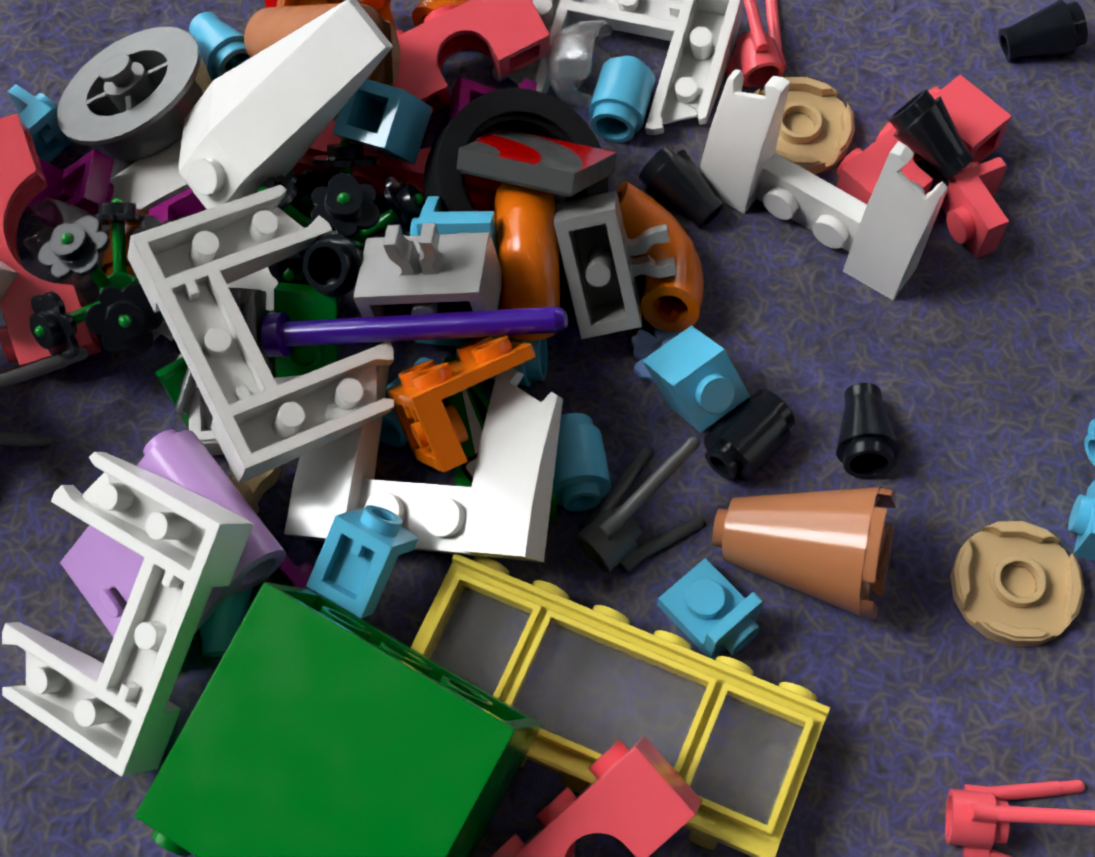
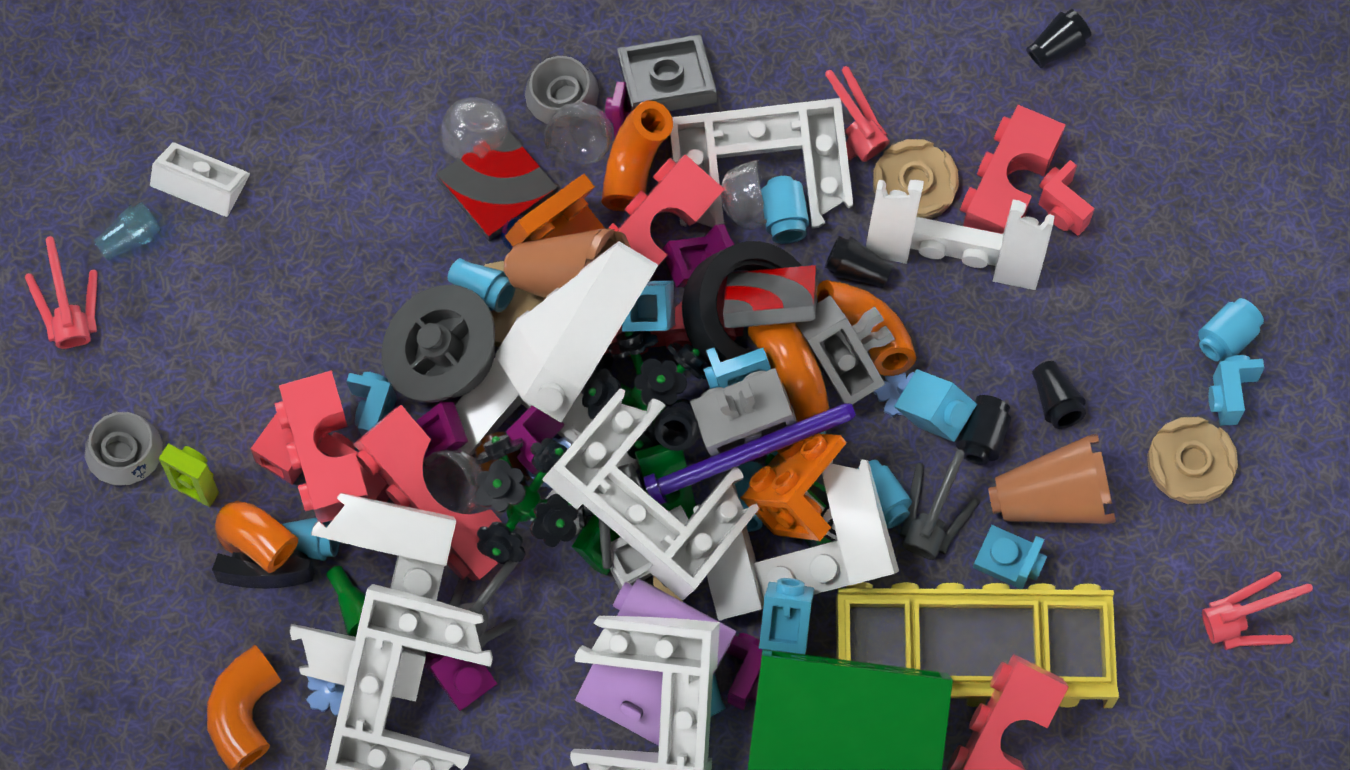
camera: 25 degrees left, 5 degrees up
(931, 134) = (1016, 163): black cone -> none

